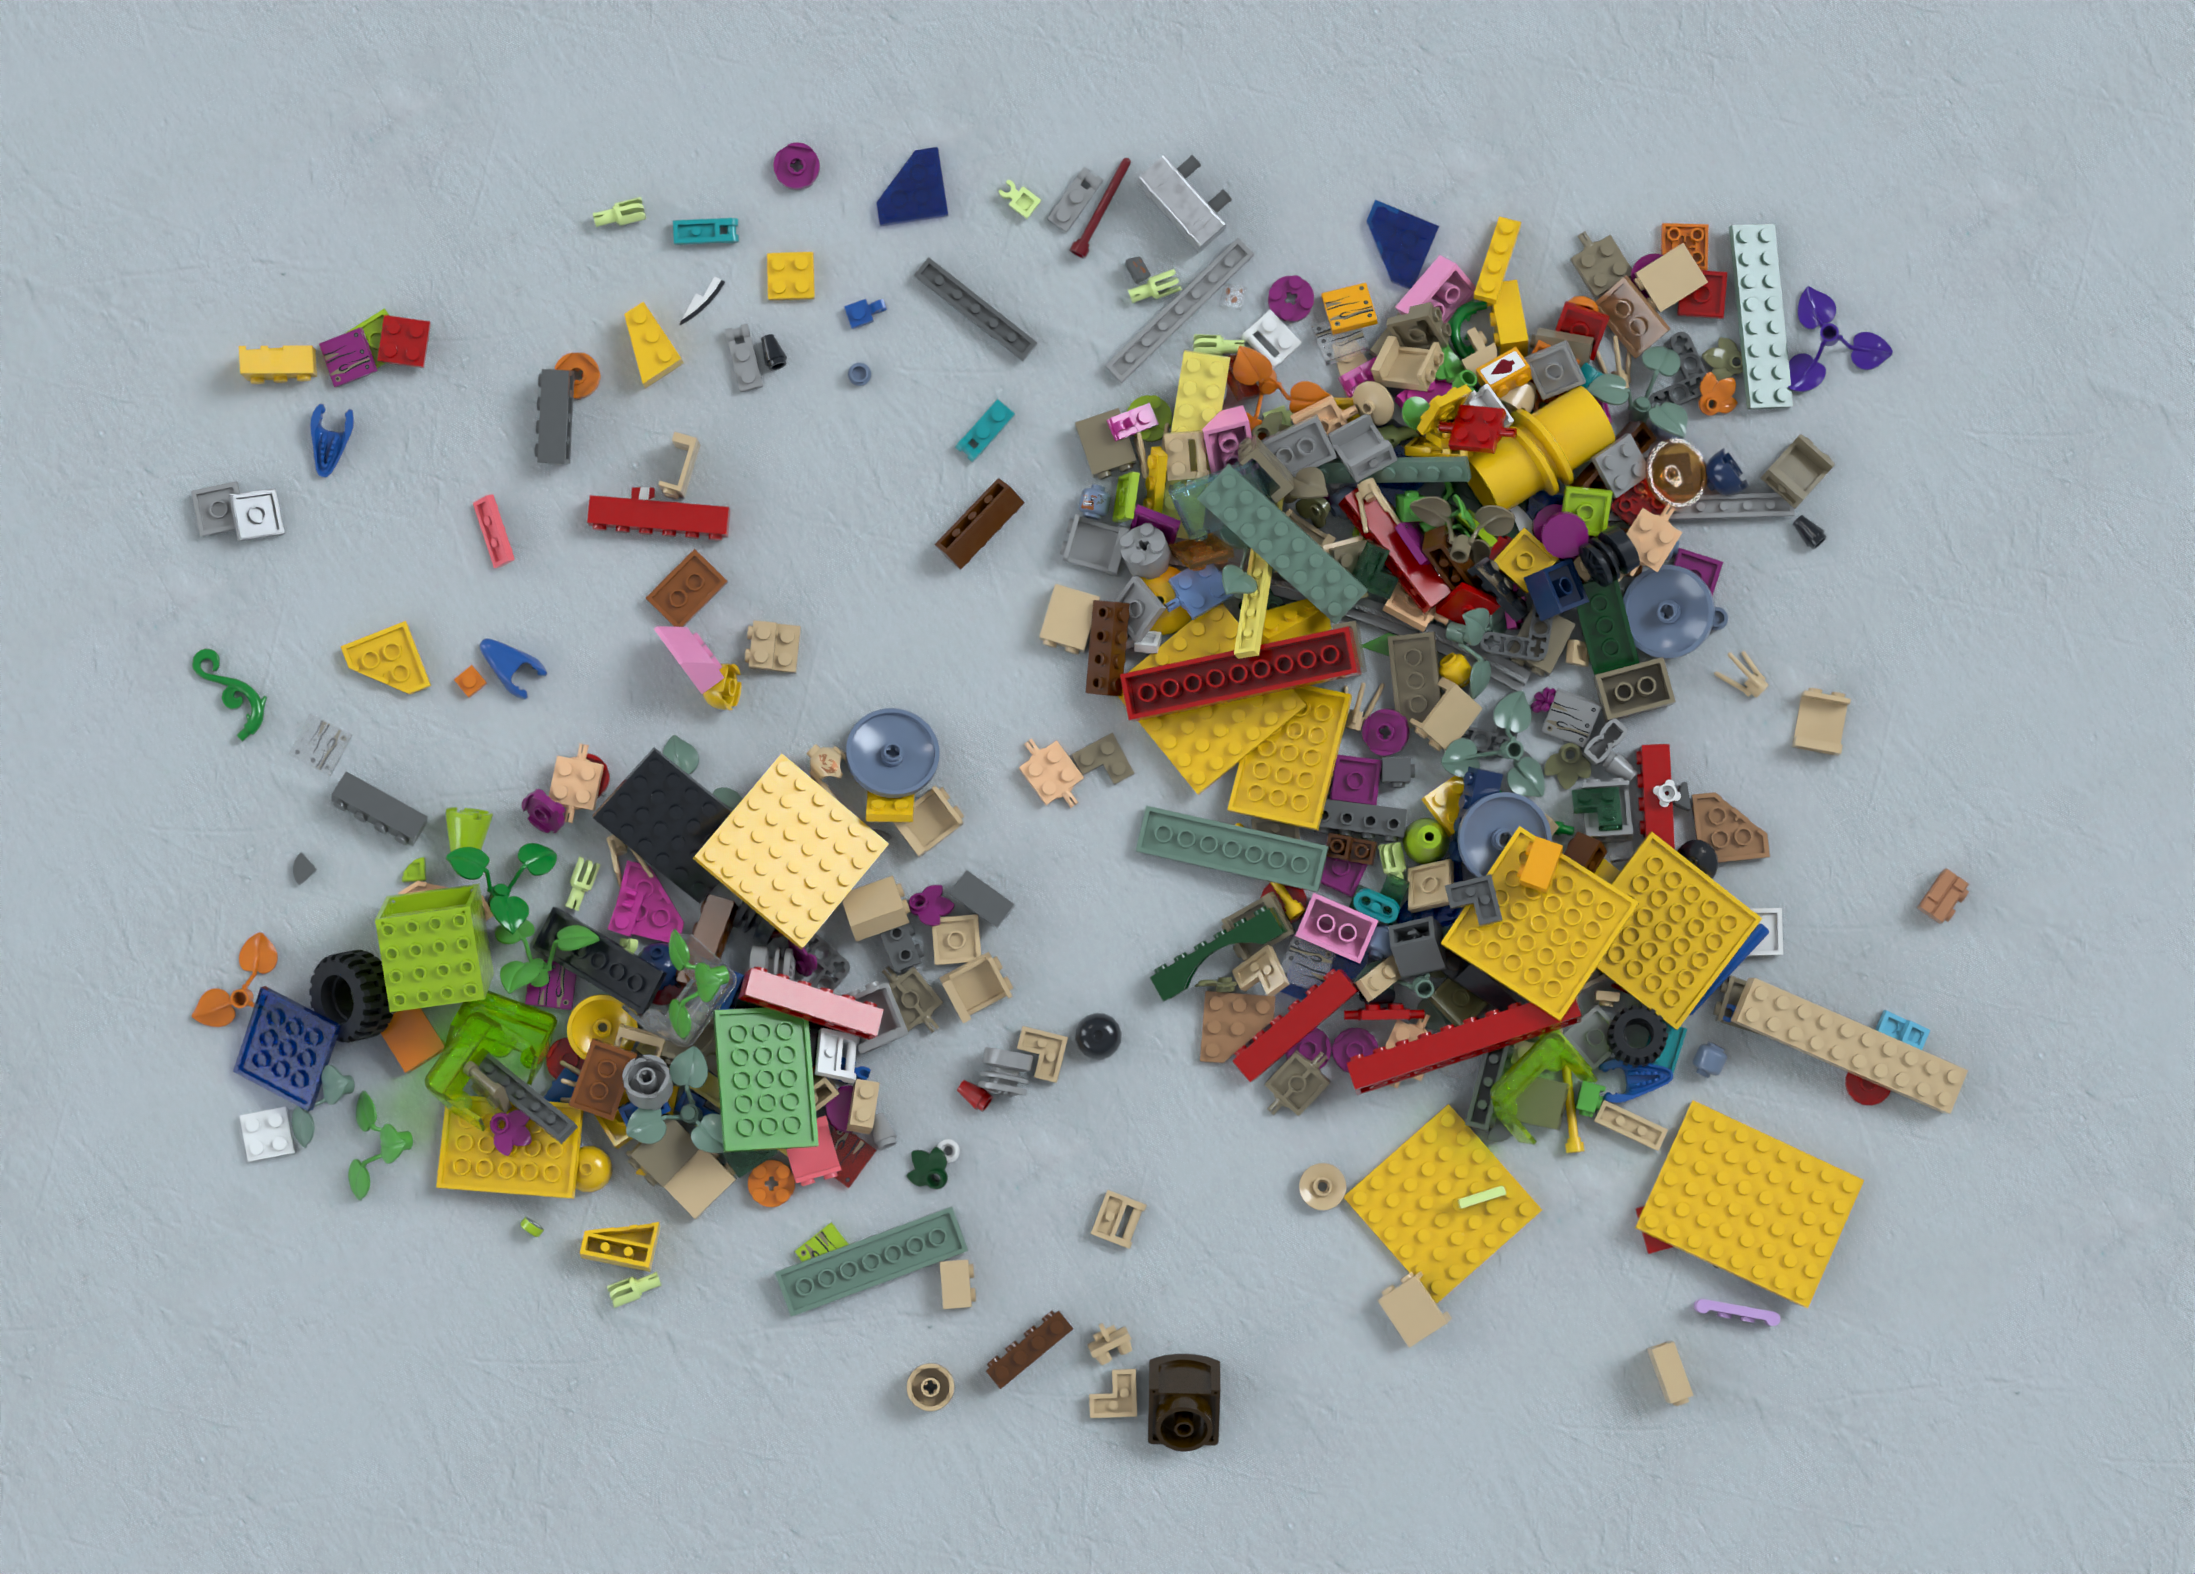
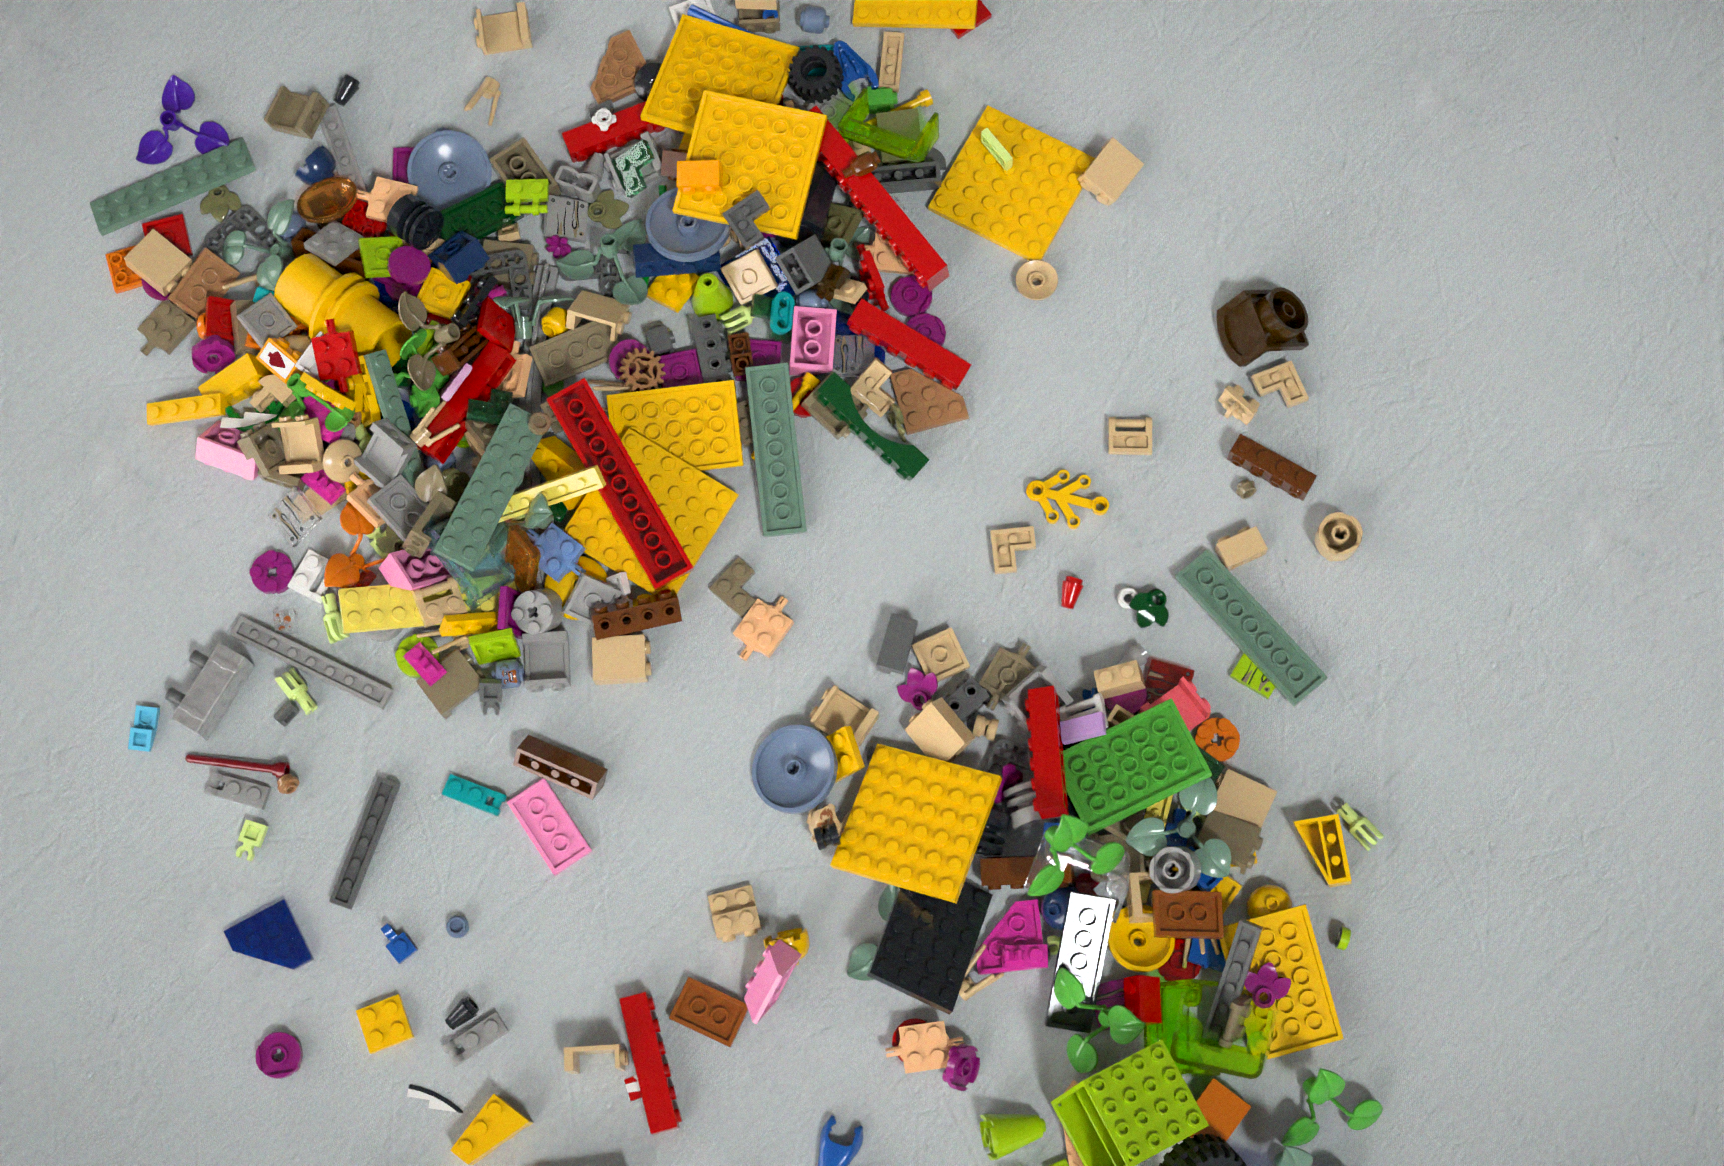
camera: 105 degrees left, 10 degrees down
(508, 911) = (1065, 1056): green plant -> none
(541, 1007) = (1143, 998): none -> red brick
(581, 881) = (1012, 1009): yellowish green arm -> none
(704, 231) = (366, 1119): teal plate -> none
(808, 759) = (827, 836): none -> black wheel
(822, 1048) = (1083, 728): none -> lavender tile
(868, 952) = (980, 727): none -> tan wheel
(926, 494) = (549, 826): none -> bright pink tile
(976, 985) = (974, 623): tan panel -> none
(1005, 1071) = (1041, 569): light grey wheel -> none
(1017, 1315) = (1246, 489): none -> dark tan plate
(1062, 251) = (287, 784): none -> medium nougat plate
(1077, 1125) = (1064, 498): none -> yellow plant
(1079, 478) = (491, 694): none -> dark grey plate
(1098, 1036) = (979, 507): black cylinder -> none
(1173, 126) = (144, 728): none -> medium azure slope
(1297, 1083) = (957, 329): dark tan plate -> none
(1334, 613) = (539, 423): none -> dark tan tile
(1349, 308) = (266, 518): light orange tile -> none
(1368, 748) = (636, 365): none -> medium nougat gear
(1388, 969) = (832, 280): none -> dark brown plate
(1401, 242) = (193, 498): clear blue plate -> none
(1462, 322) = (249, 419): none -> white sticker
(1494, 1040) = (862, 164): none -> reddish brown plant
(1546, 305) = (212, 346): none -> magenta plate
(1609, 684) = (527, 191): none -> lime plate
(1719, 392) = (251, 199): orange plate -> none

